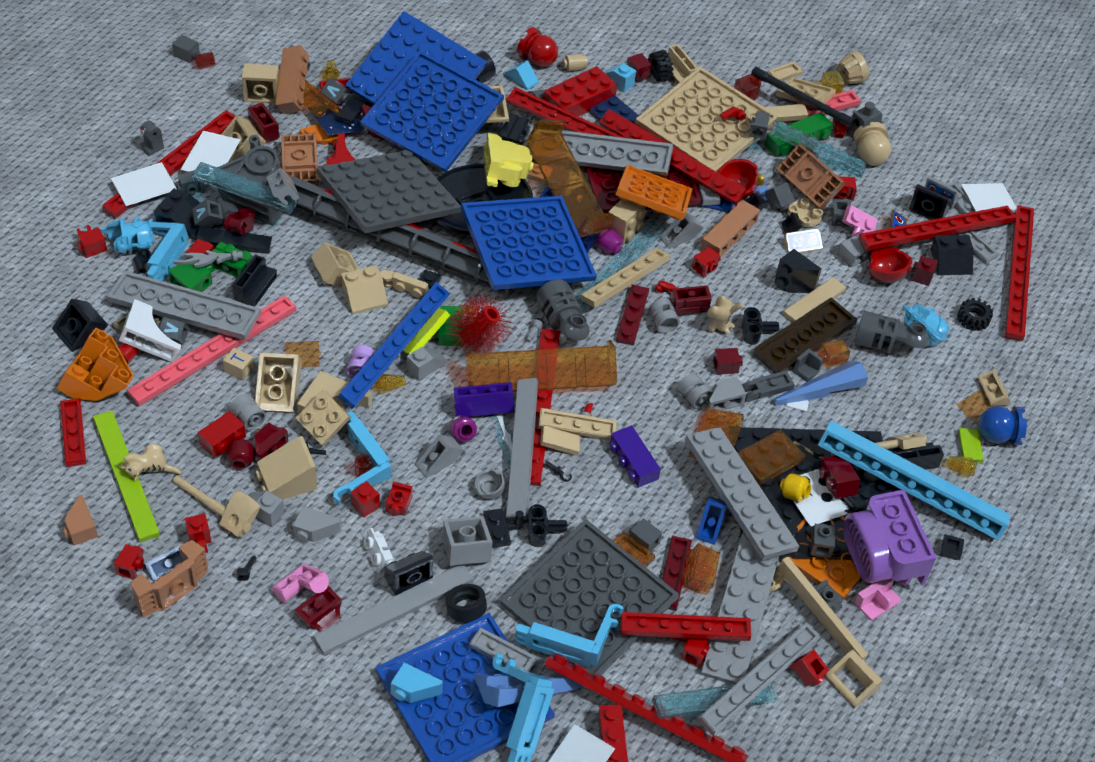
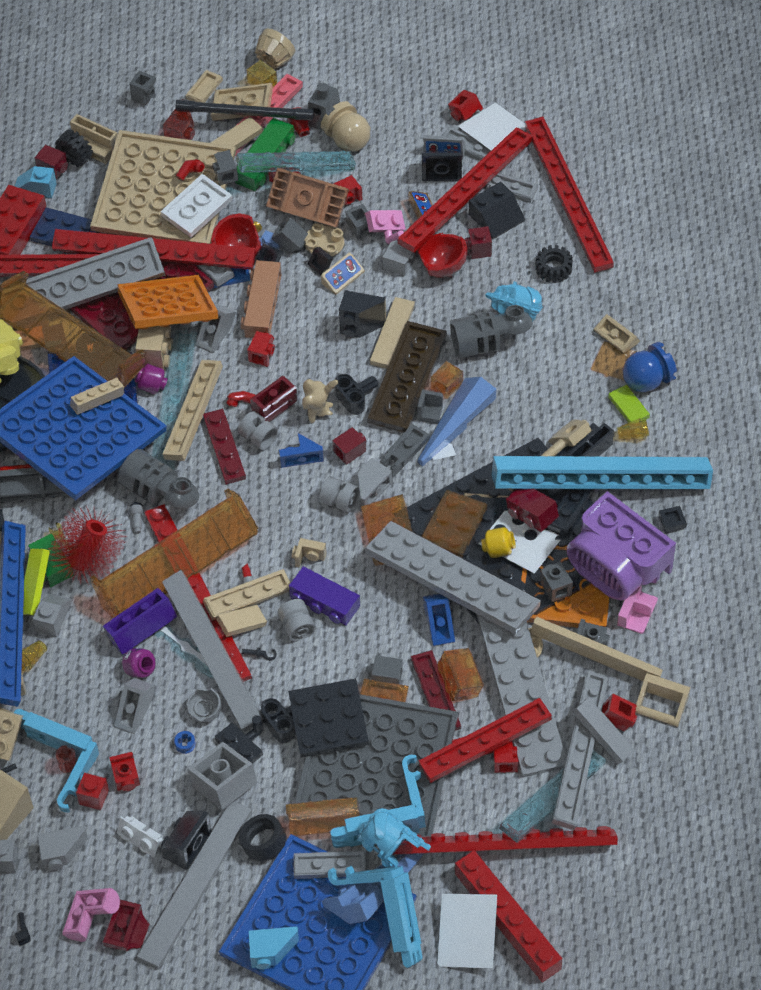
camera: 25 degrees left, 5 degrees up
(455, 499) = (179, 739): none -> blue bush
(518, 610) = (320, 816): none -> clear orange panel
(555, 652) = (388, 834): none -> medium azure helmet
(558, 228) = (97, 396): none -> tan piece
(574, 542) = (328, 717): none -> black plate
(601, 461) = (296, 620): none -> light grey wheel
(646, 417) = (310, 549): none -> tan bracket
(687, 349) = (306, 453): none -> blue slope
(721, 140) = (196, 205): none -> white plate
(740, 52) = (144, 90): none -> dark grey brick
(788, 674) = (603, 730): none -> light grey tile
(975, 172) = (464, 105): none -> red brick

